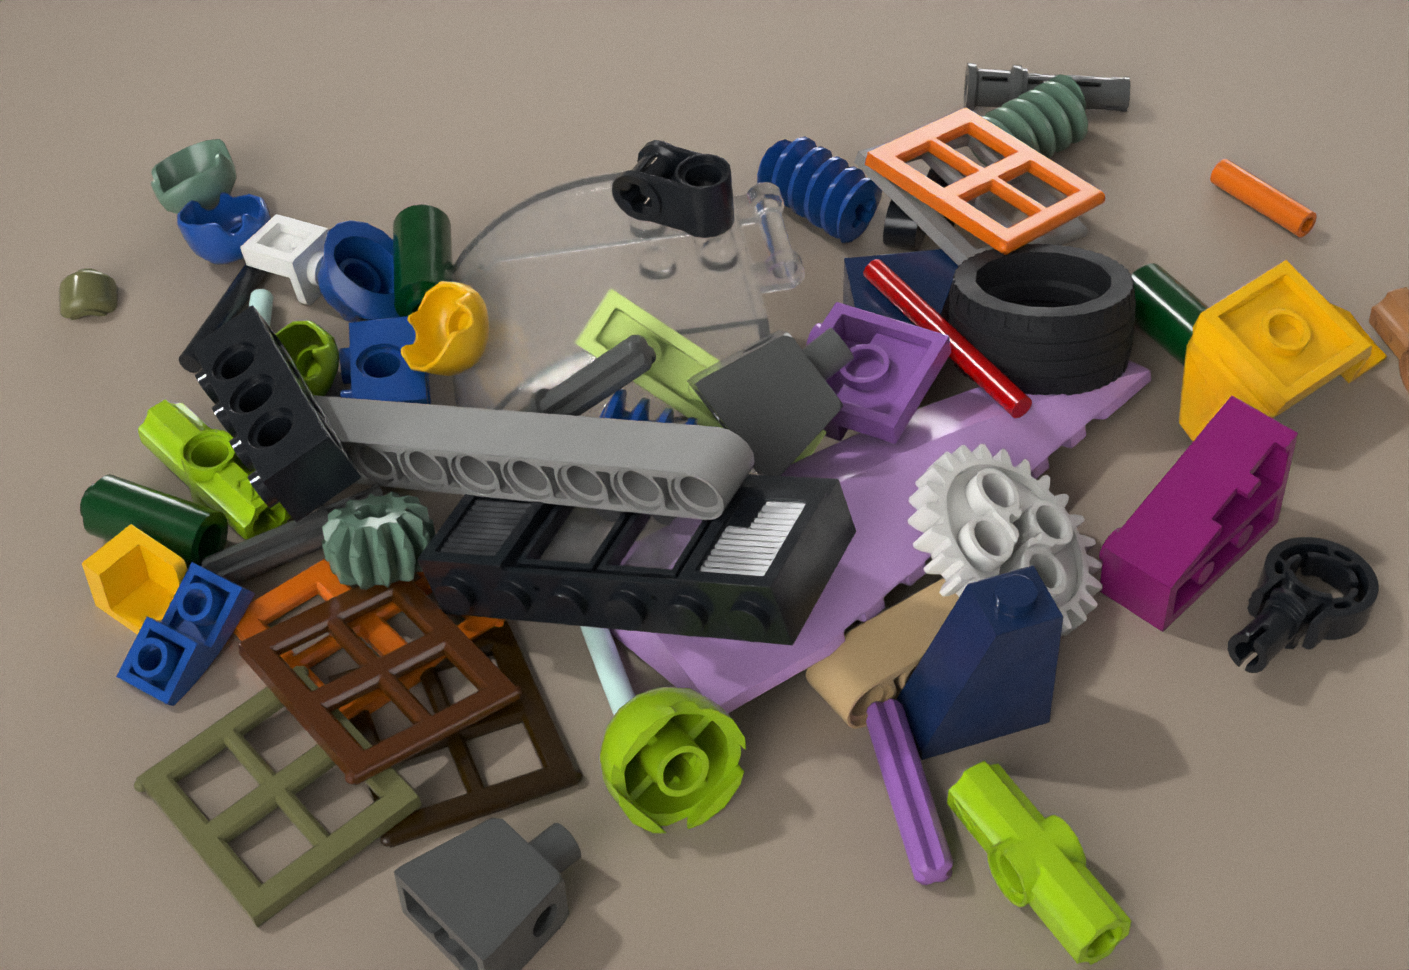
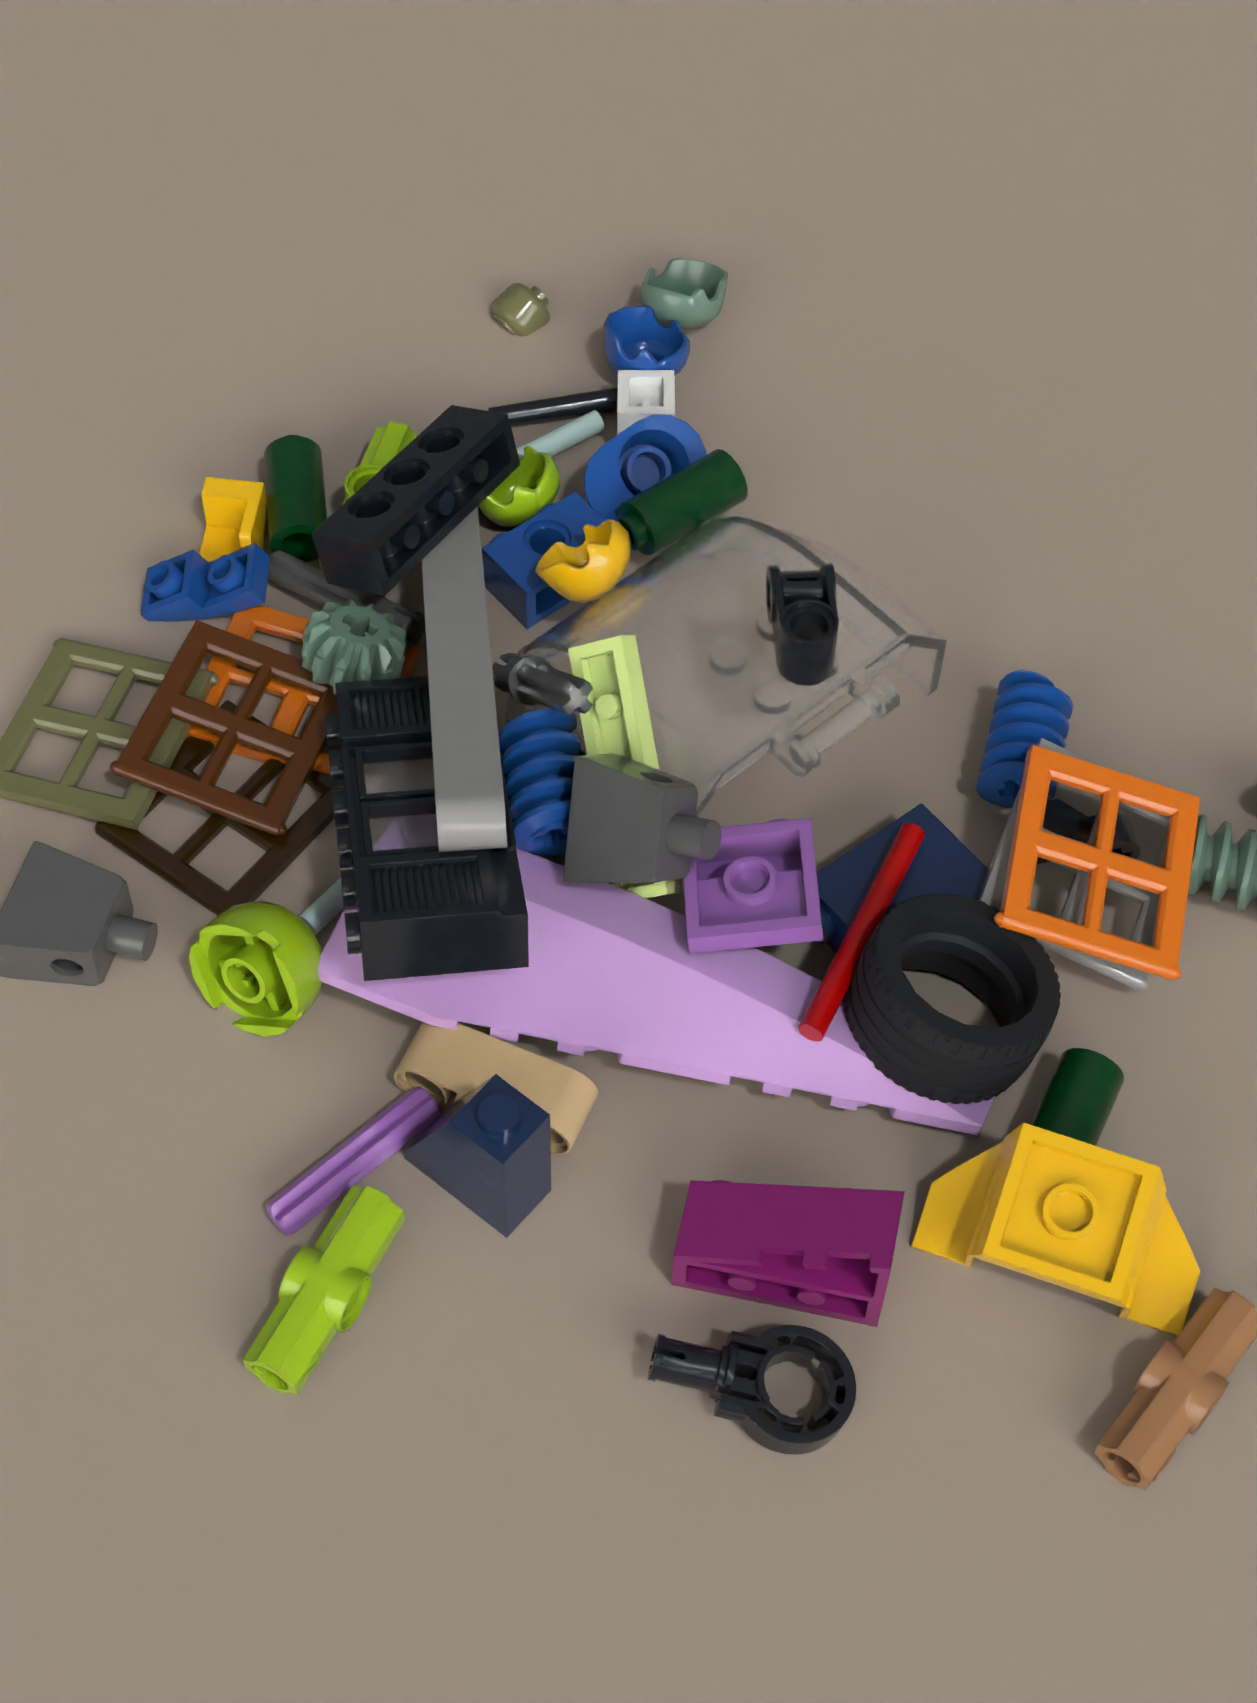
camera: 55 degrees right, 10 degrees up
(997, 518) = (624, 1039): white gear -> none

